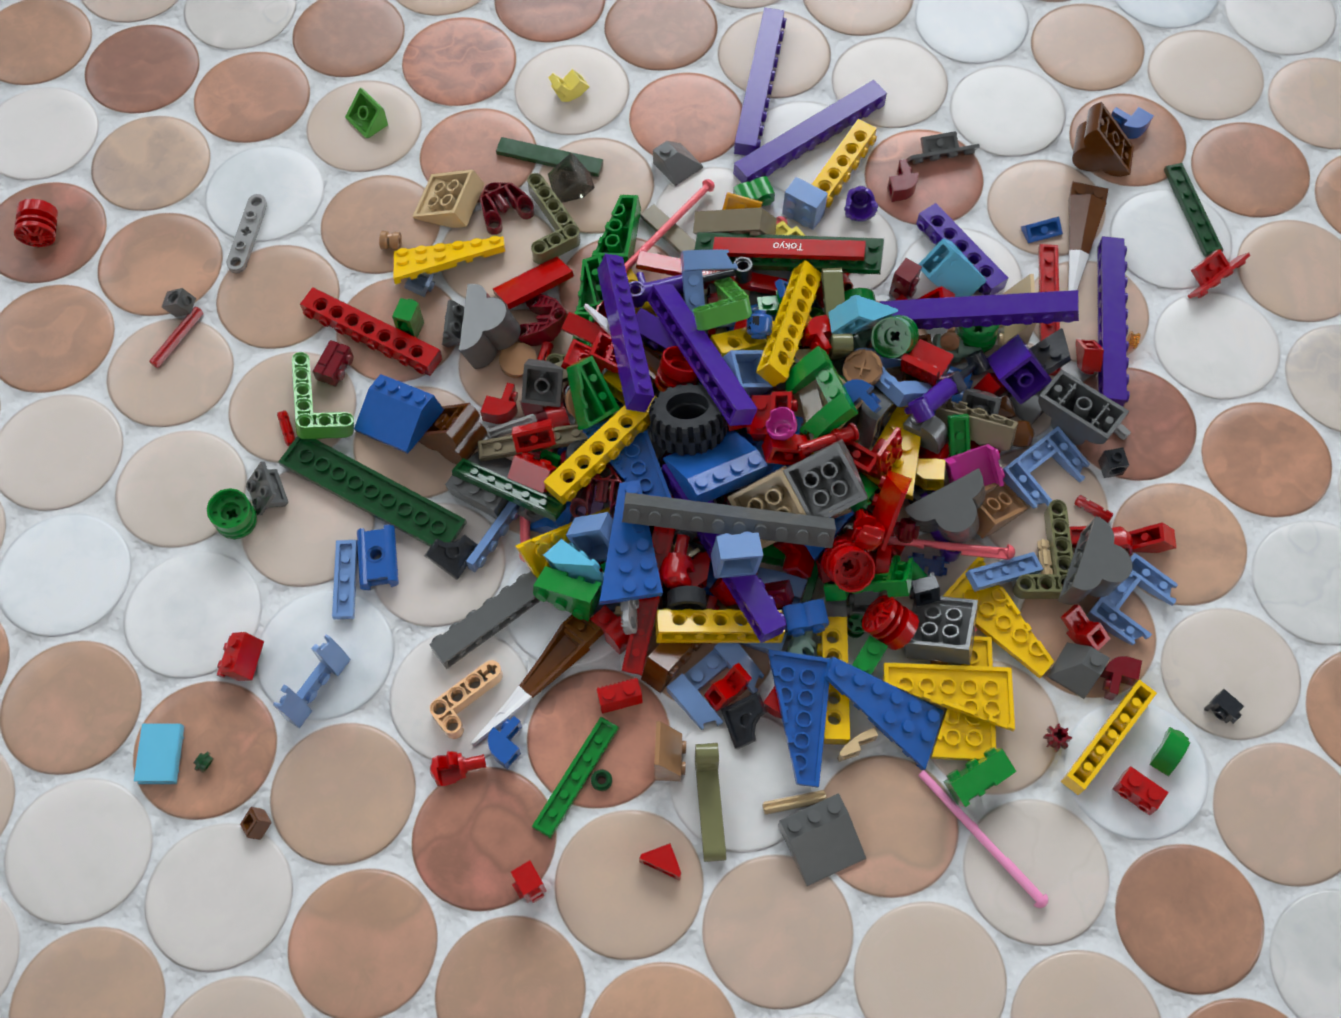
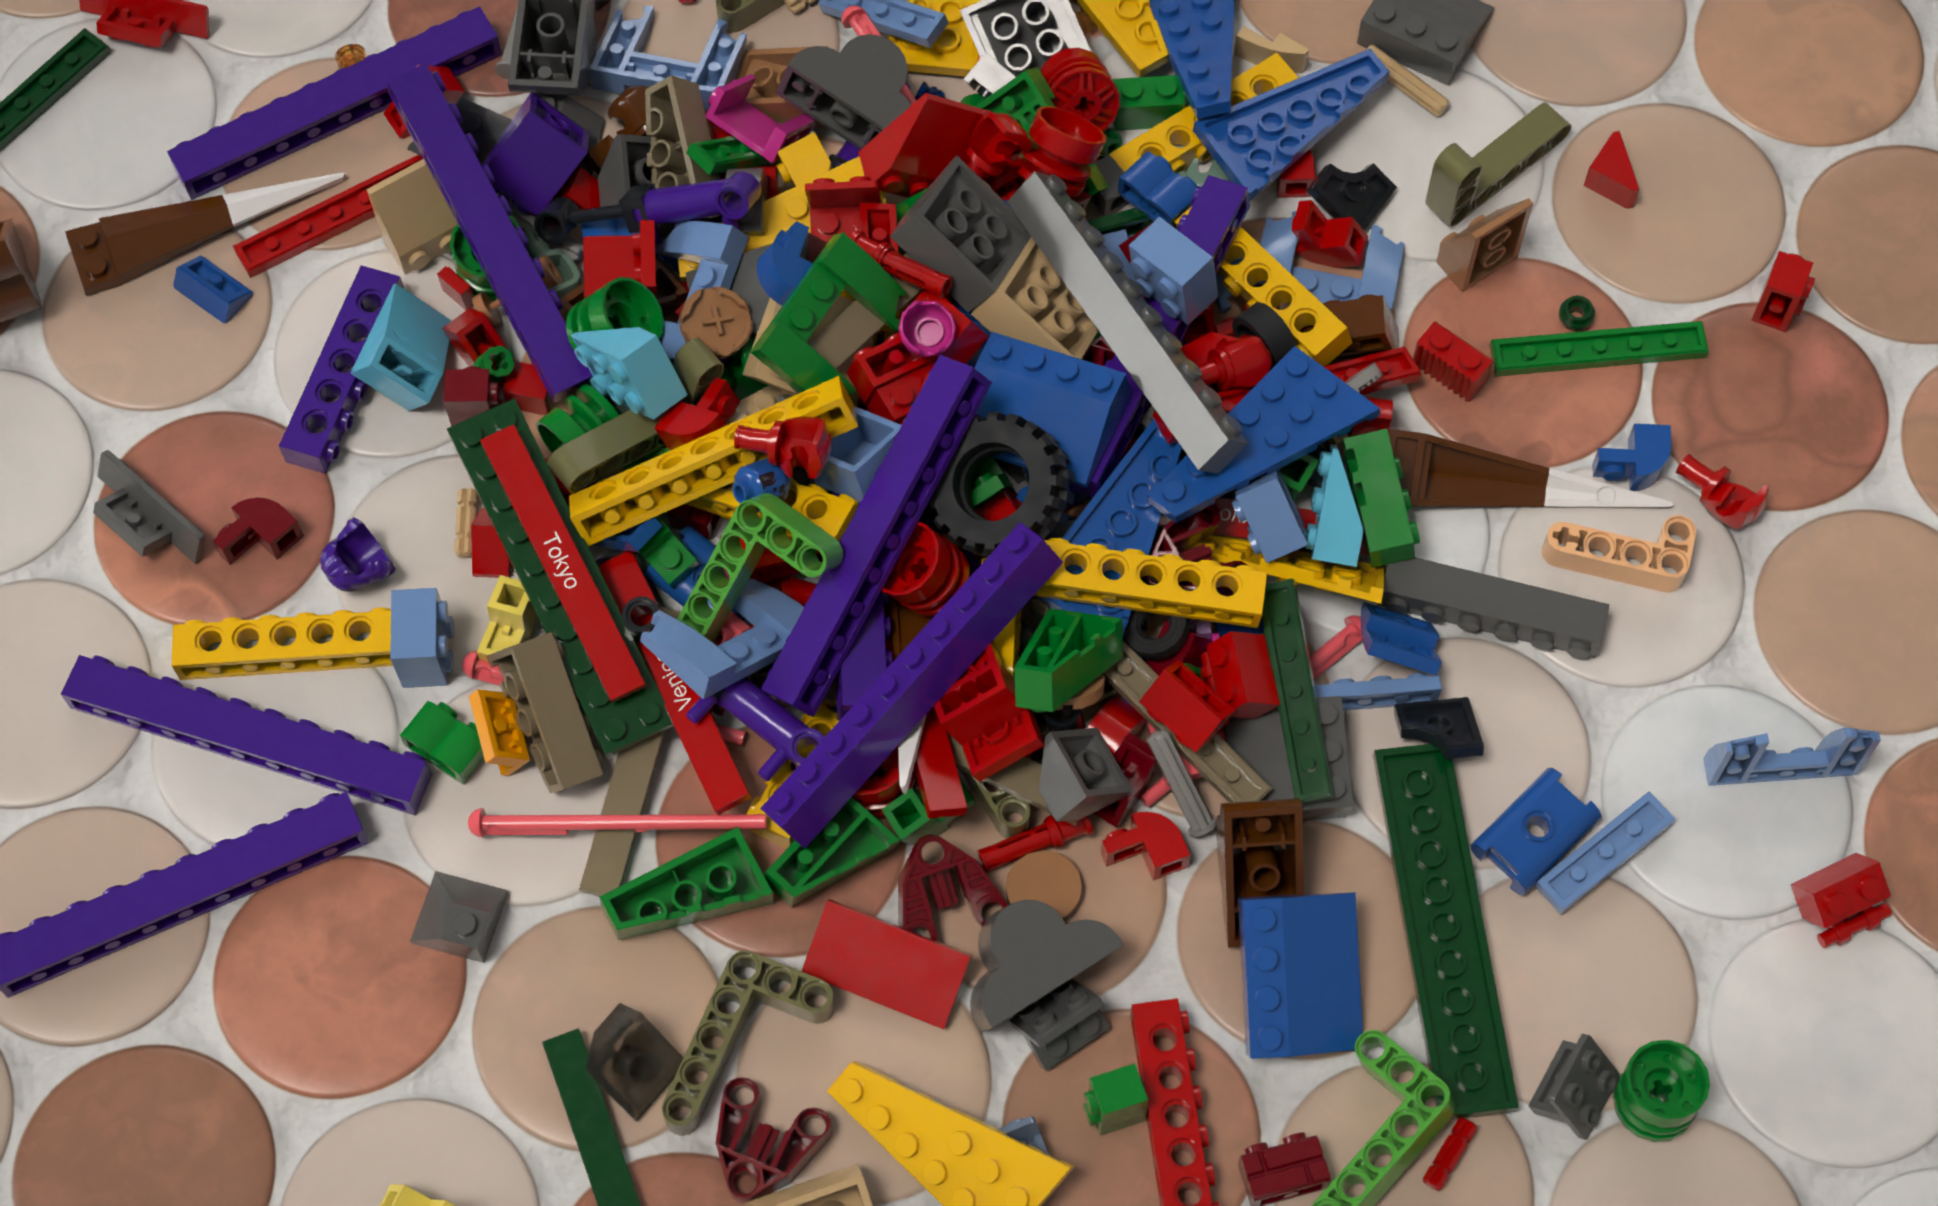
camera: 125 degrees left, 0 degrees up
(501, 562) = (1399, 638): none -> blue slope
(765, 333) = (790, 444): none -> red piece
(913, 291) = (501, 356): none -> green bush

